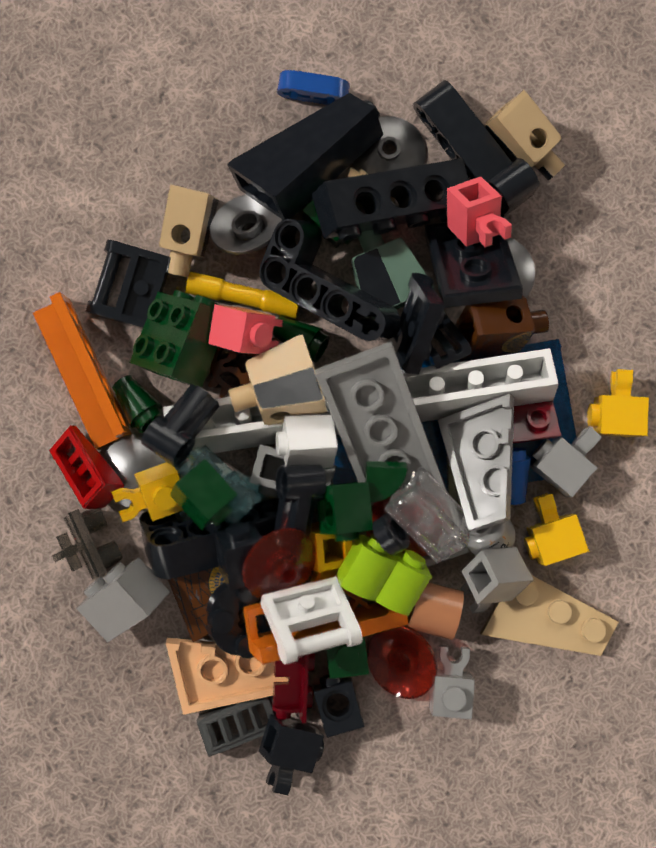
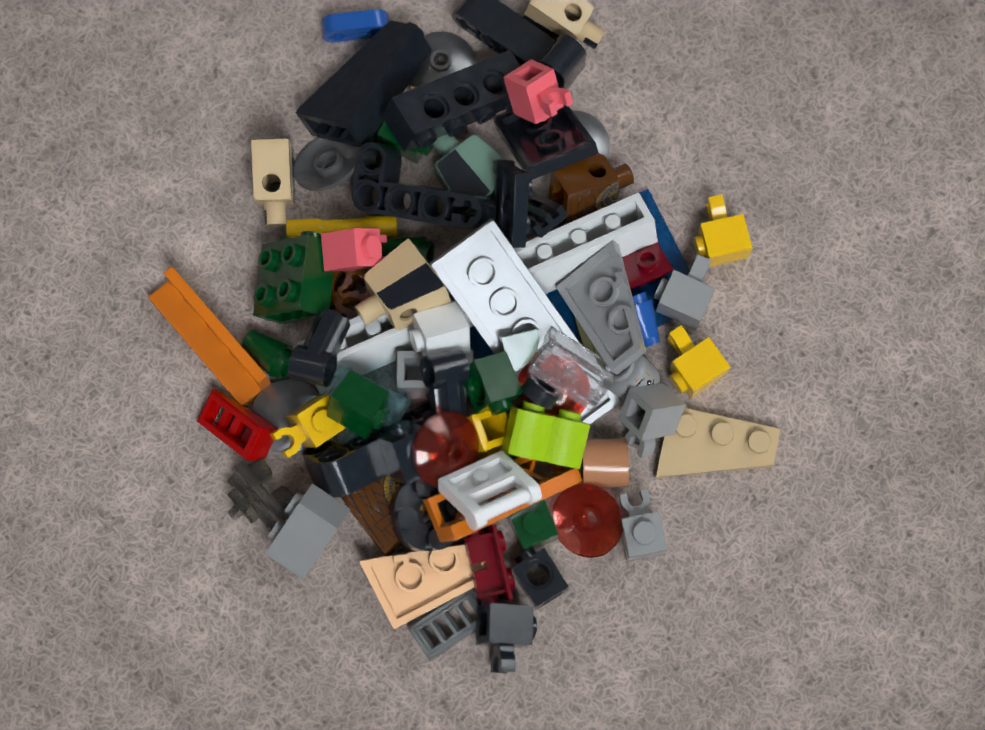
camera: 15 degrees left, 10 degrees down
(142, 281) = (244, 243): black plate -> none

